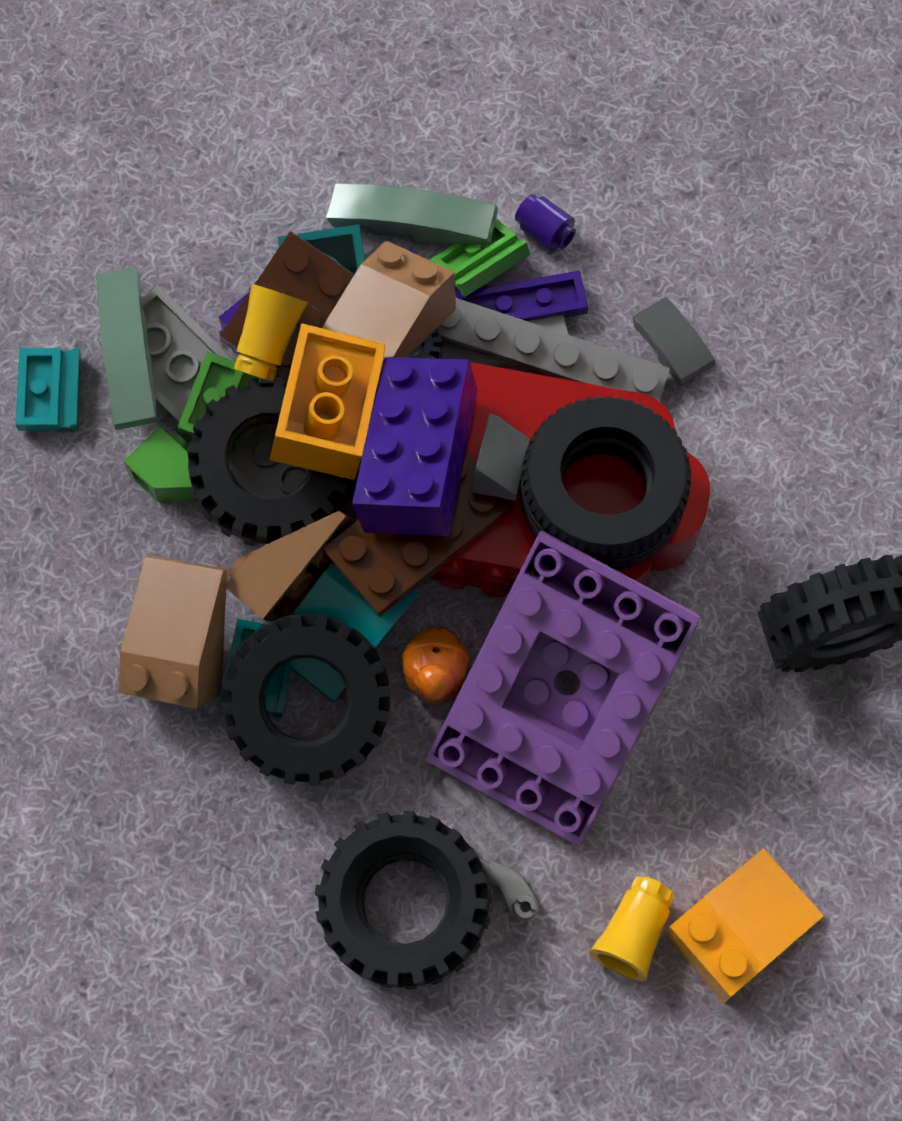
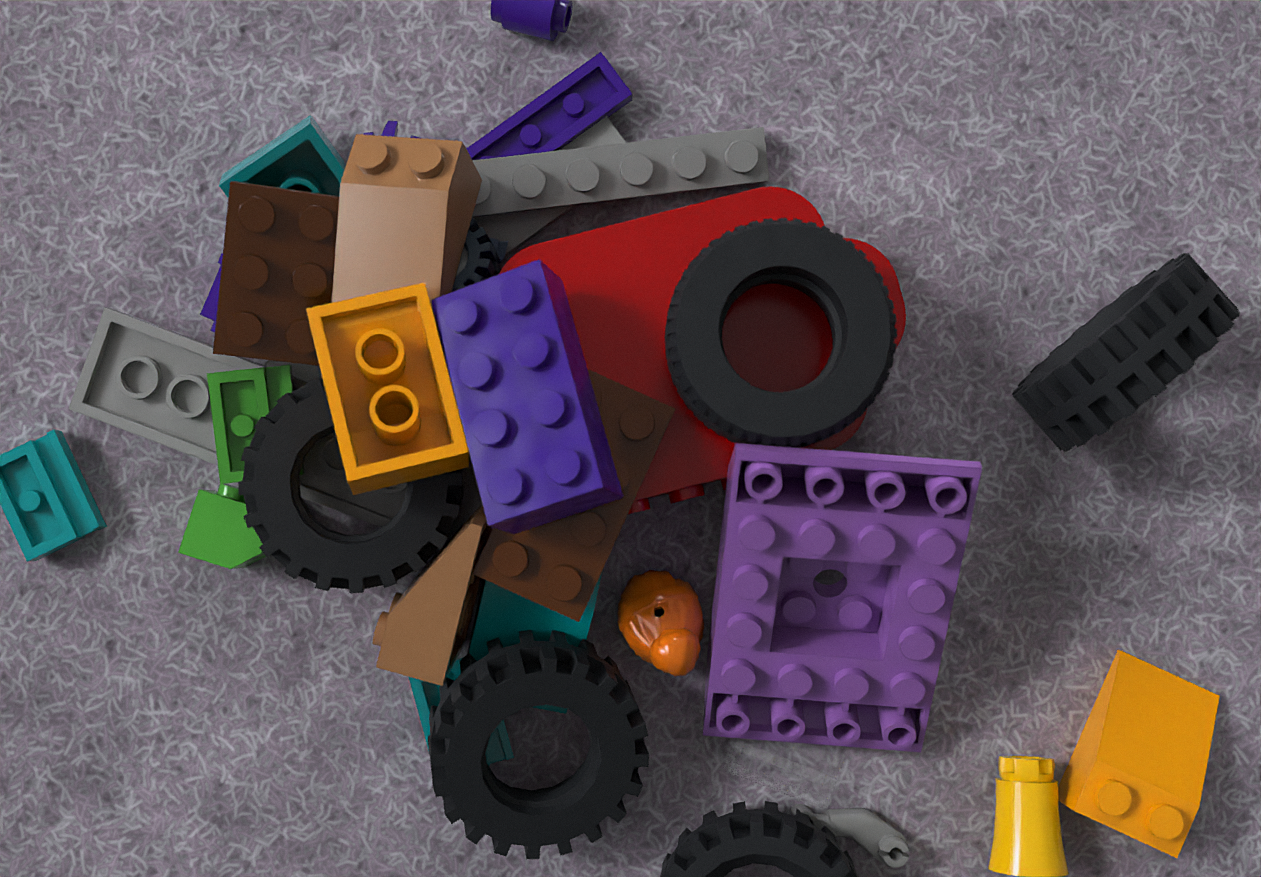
camera: 25 degrees left, 15 degrees up
(126, 349) = (107, 412): sand green slope -> none
(175, 633) = (347, 743): medium nougat slope -> none
(267, 331) = (267, 327): yellow plant -> none
(415, 212) = (367, 69): sand green slope -> none
(481, 263) = (475, 89): bright green plate -> none
(500, 460) = (636, 363): dark grey slope -> none
(674, 339) = (751, 87): dark grey slope -> none

